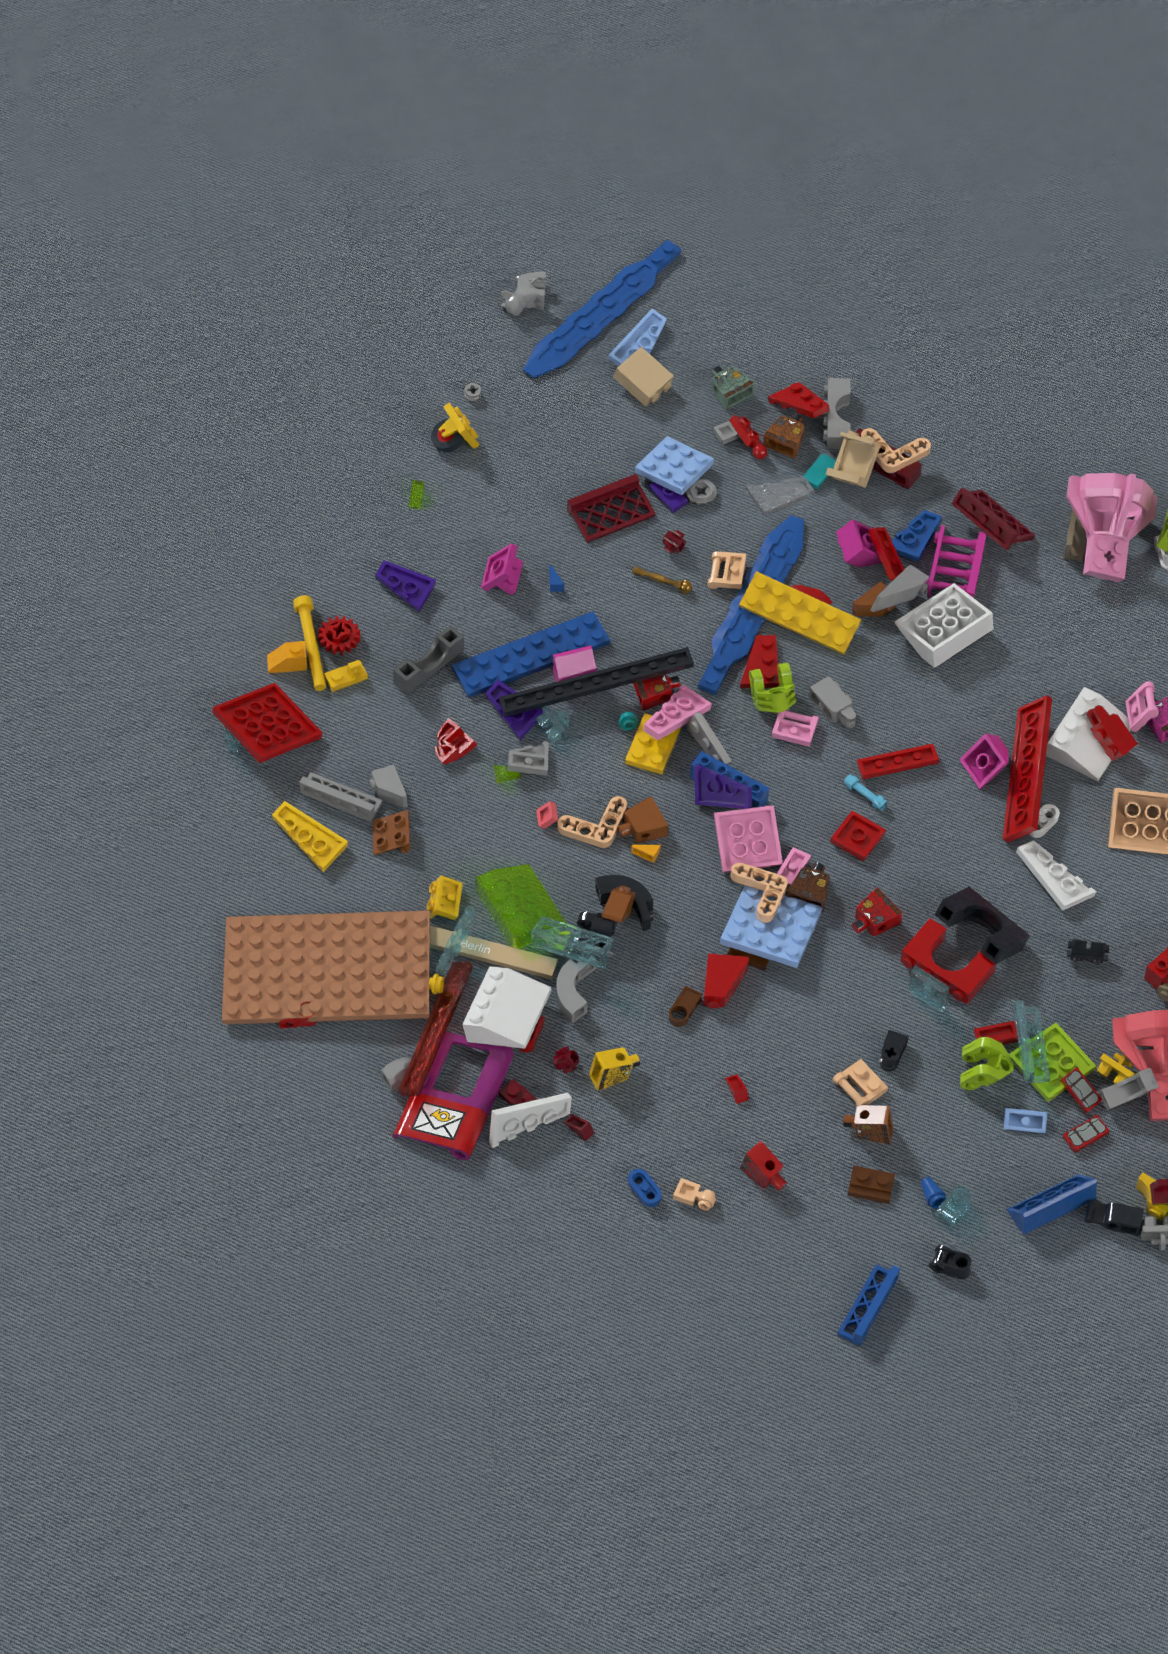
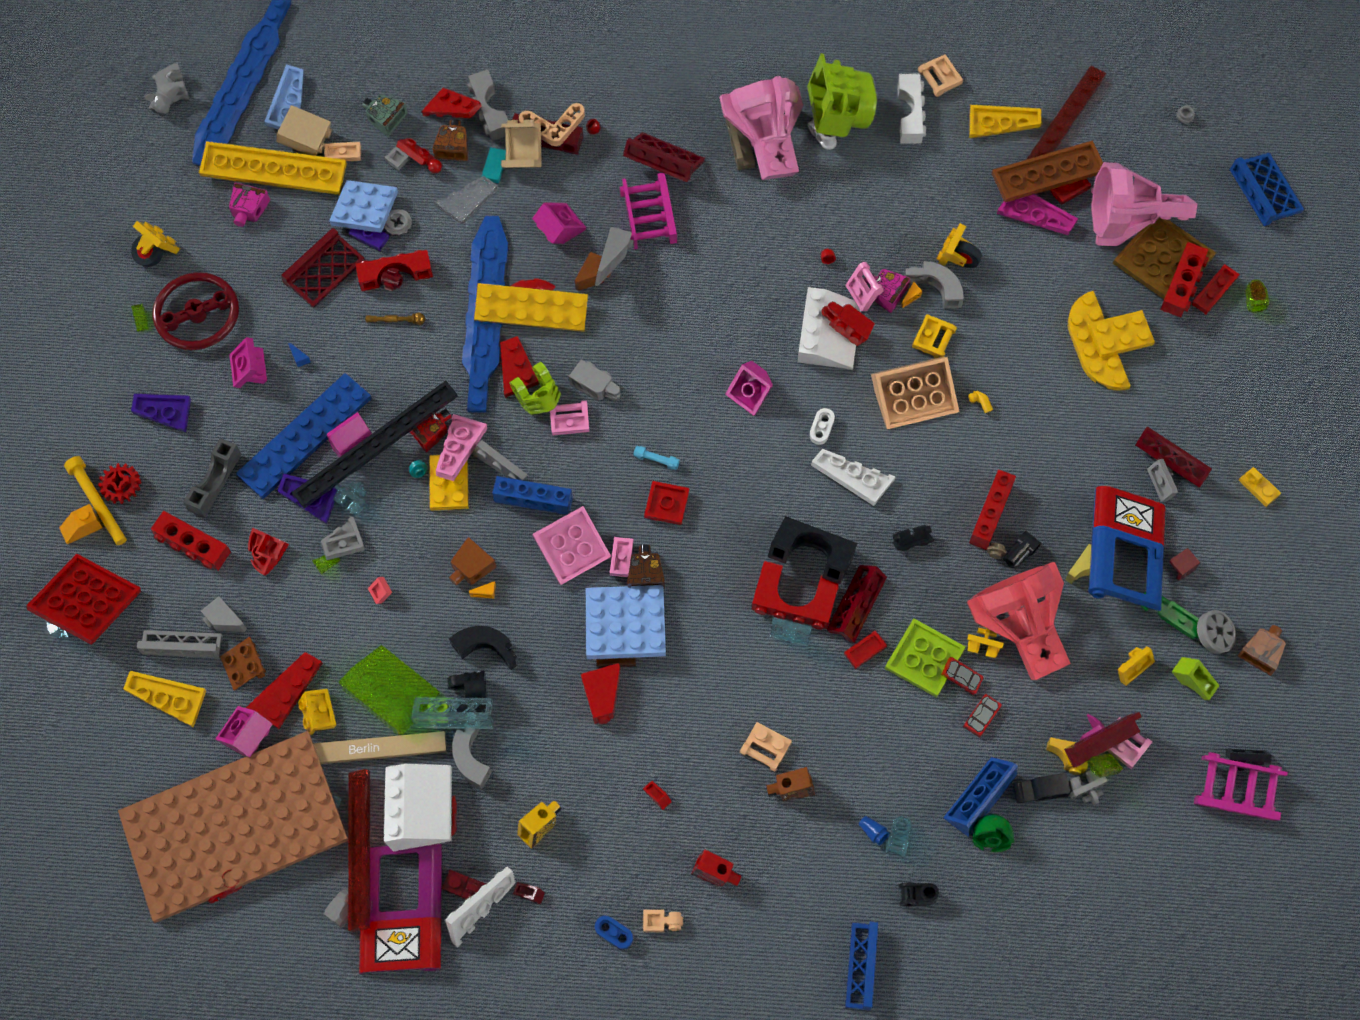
camera: 20 degrees left, 10 degrees up
(346, 676) = (140, 521): yellow hinge -> none
(370, 891) = (244, 731): none -> dark pink slope
(383, 699) = (168, 523): none -> red brick
(417, 874) = (285, 691): none -> red wing
(436, 984) = (342, 804): yellow plate -> none
(453, 945) = (344, 761): clear light blue plate -> none
(472, 397) = (155, 205): light grey bush -> none
(472, 506) = (195, 311): none -> dark red piece
(561, 425) = (247, 203): none -> dark pink torso
(566, 1059) = (491, 831): dark red gear -> none
(597, 831) = (432, 587): light nougat beam -> none
(600, 400) = (272, 168): none -> yellow plate
(619, 904) = (481, 659): dark orange slope -> none
(674, 409) = (347, 151): none -> light nougat plate
(687, 1003) = (578, 727): reddish brown piece -> none
(702, 535) = (415, 264): none -> red arch
(719, 790) = (528, 508): dark purple wing -> none
(733, 570) = (455, 286): light nougat plate -> none
(769, 889) = (611, 587): light nougat beam -> none
(871, 1184) = (815, 843): reddish brown plate -> none
(876, 914) = (714, 574): red torso -> none
(886, 552) = (585, 222): red plate -> none
(892, 1050) = (781, 699): black piece -> none
(897, 761) = (673, 417): red plate -> none
(917, 536) = (603, 197): blue wing -> none
(936, 468) = (595, 127): none -> red hinge
(945, 624) = (662, 271): white slope -> none
(996, 1068) = (880, 680): lime piece -> none
(1004, 992) = (861, 602): none -> dark red fence
(1025, 1120) = (924, 723): light blue slope -> none
(1026, 1044) = (897, 650): clear light blue fence -> none
(1027, 769) = (790, 383): red plate -> none
(1047, 1236) = (993, 832): none -> green cylinder
(1121, 671) = (827, 256): none -> red hinge
(1128, 1089) = (1006, 660): light grey arch -> none

